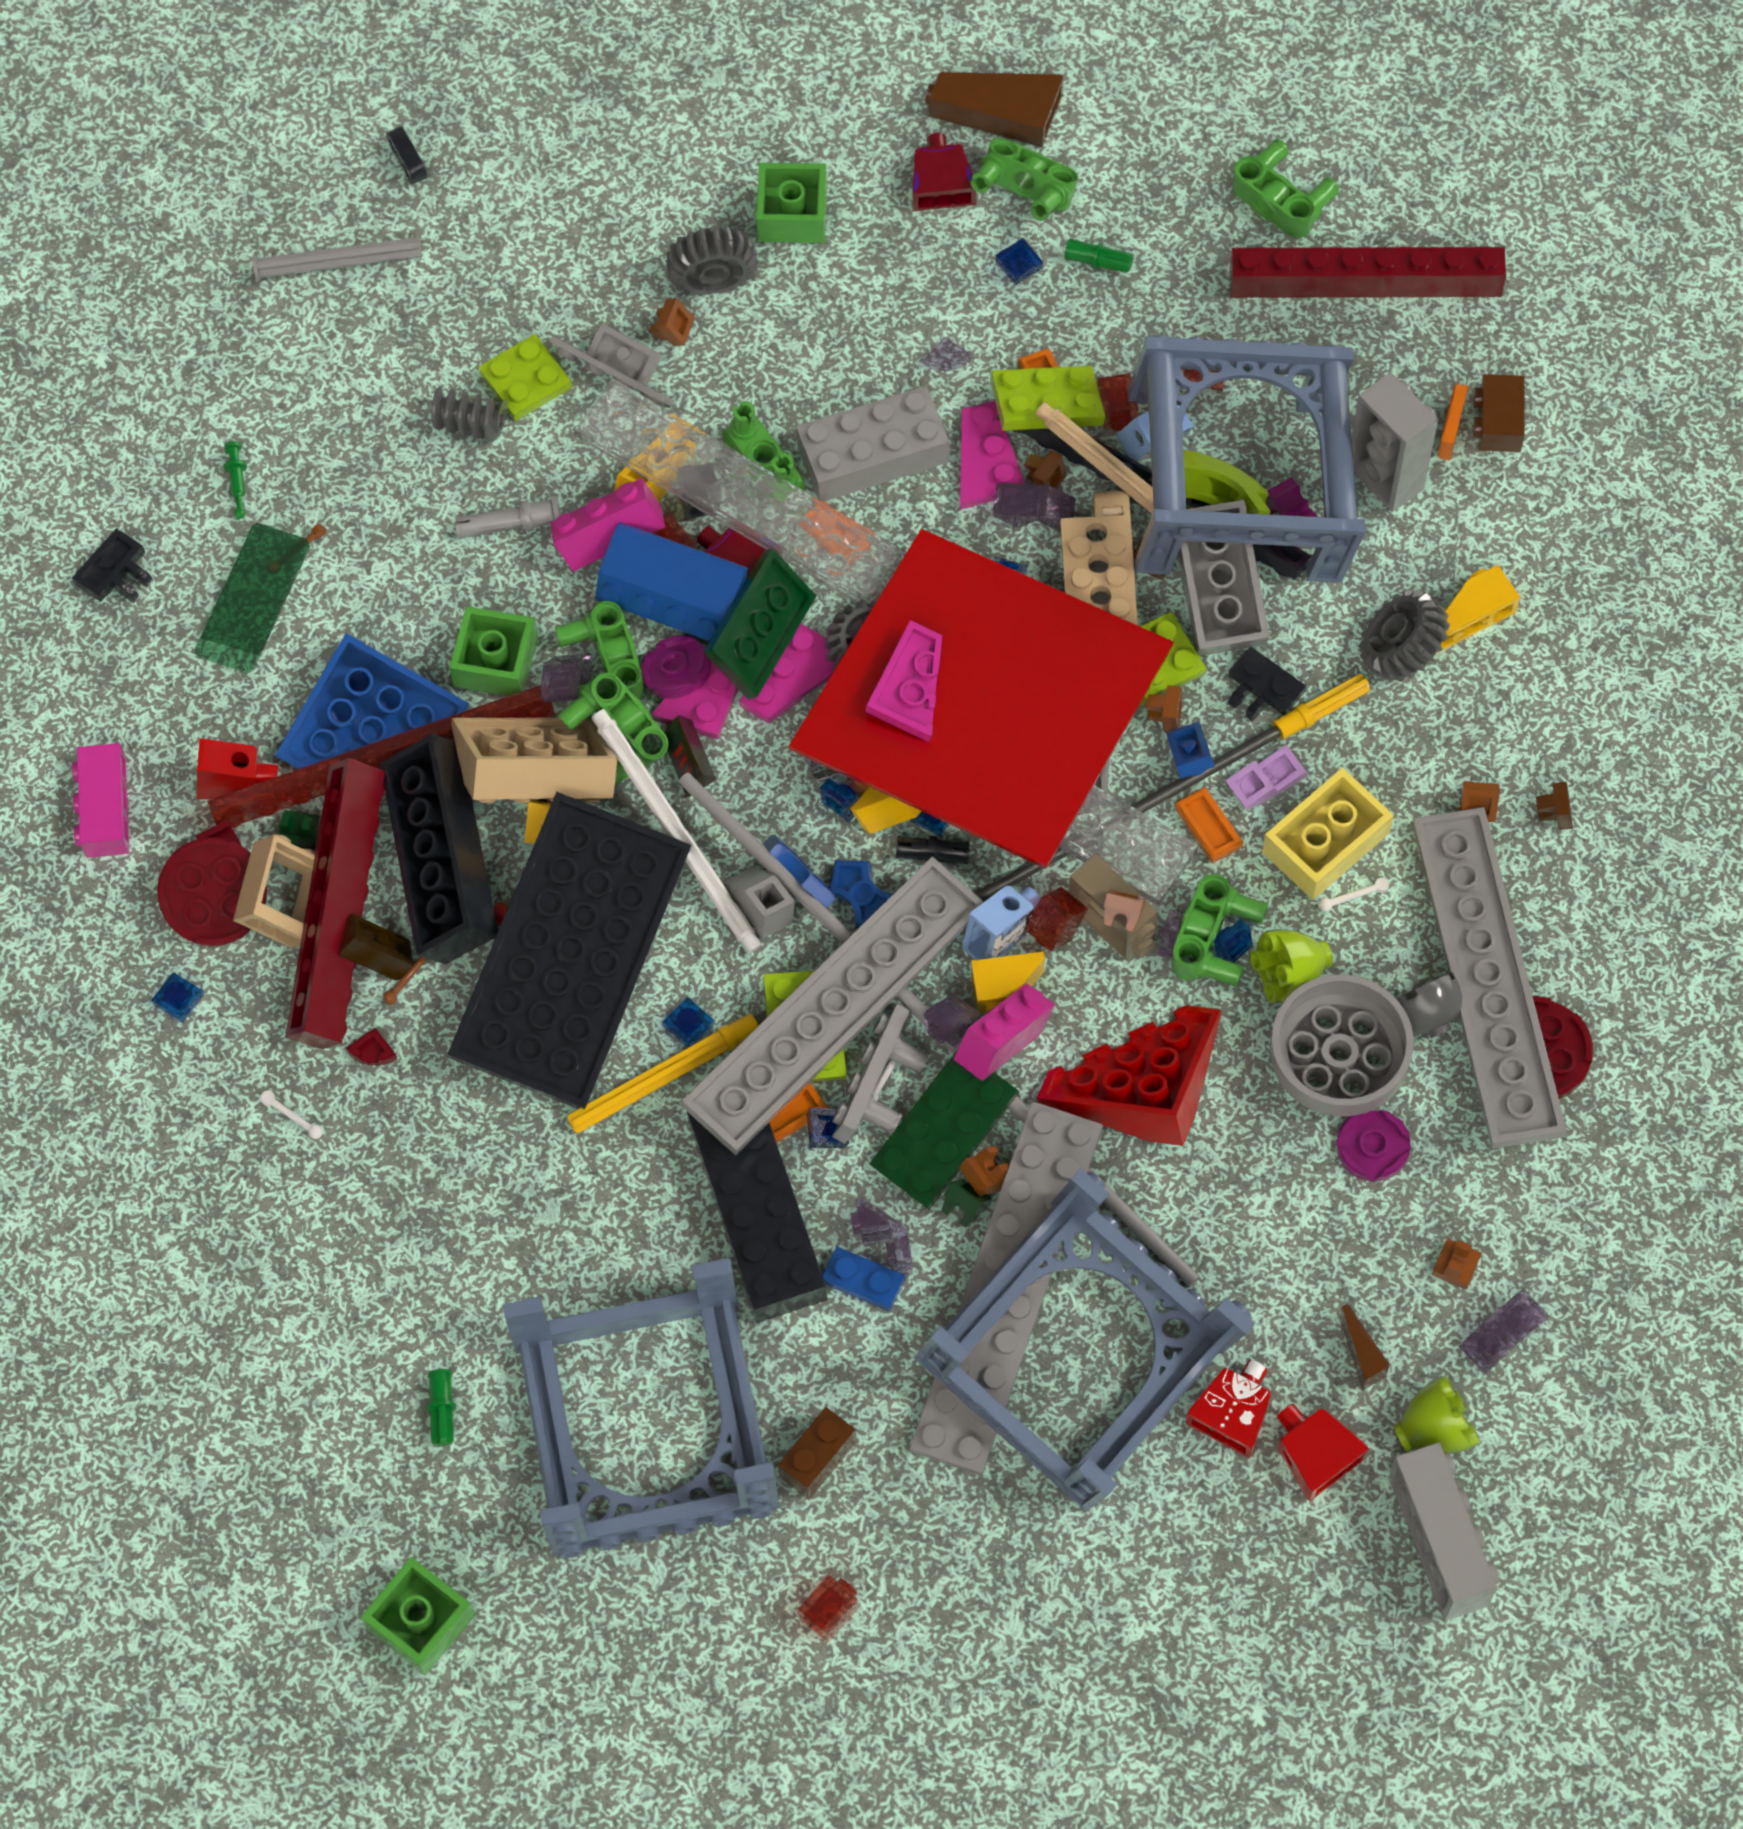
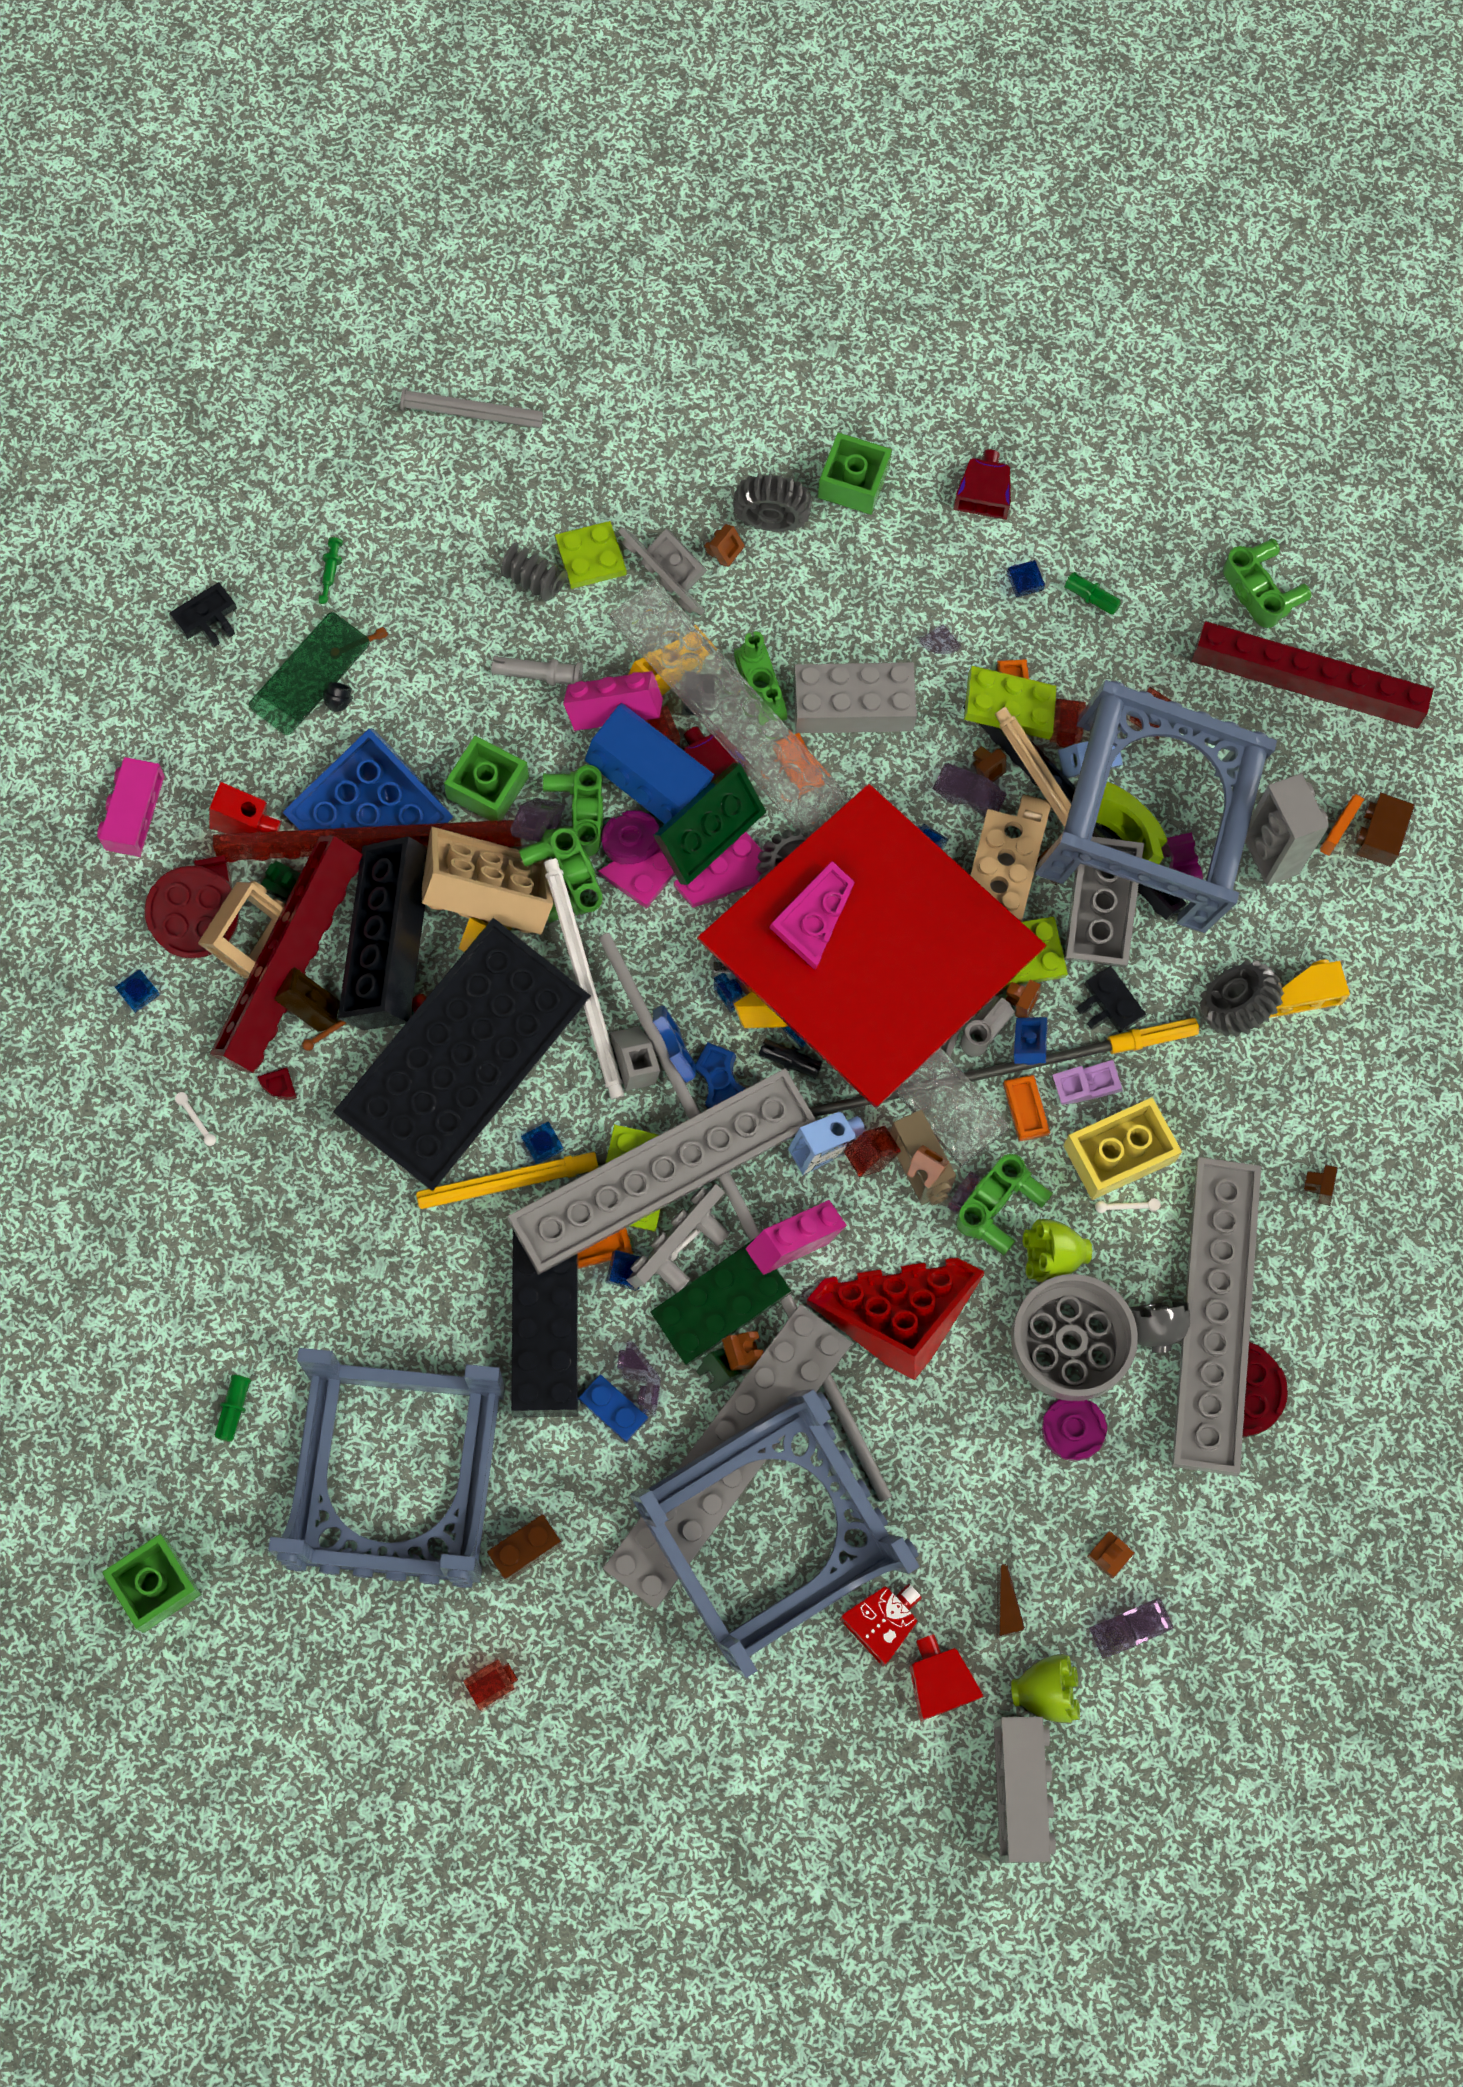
camera: 10 degrees right, 5 degrees up
(294, 613) = (337, 696): none -> black plate
(406, 154) = (556, 340): black beam -> none
(687, 752) = (617, 913): dark brown slope -> none
(950, 1020) = (756, 1212): clear purple slope -> none
(985, 456) = (943, 736): dark pink wing -> none
(998, 103) = (1051, 439): reddish brown slope -> none
(1002, 976) = (812, 1187): yellow slope -> none
(1028, 175) = (1056, 508): bright green piece -> none
(1136, 751) = (986, 1025): none -> light grey piece
(1233, 941) = (1013, 1216): clear blue plate -> none
(1480, 795) = (1261, 1155): dark orange tile -> none

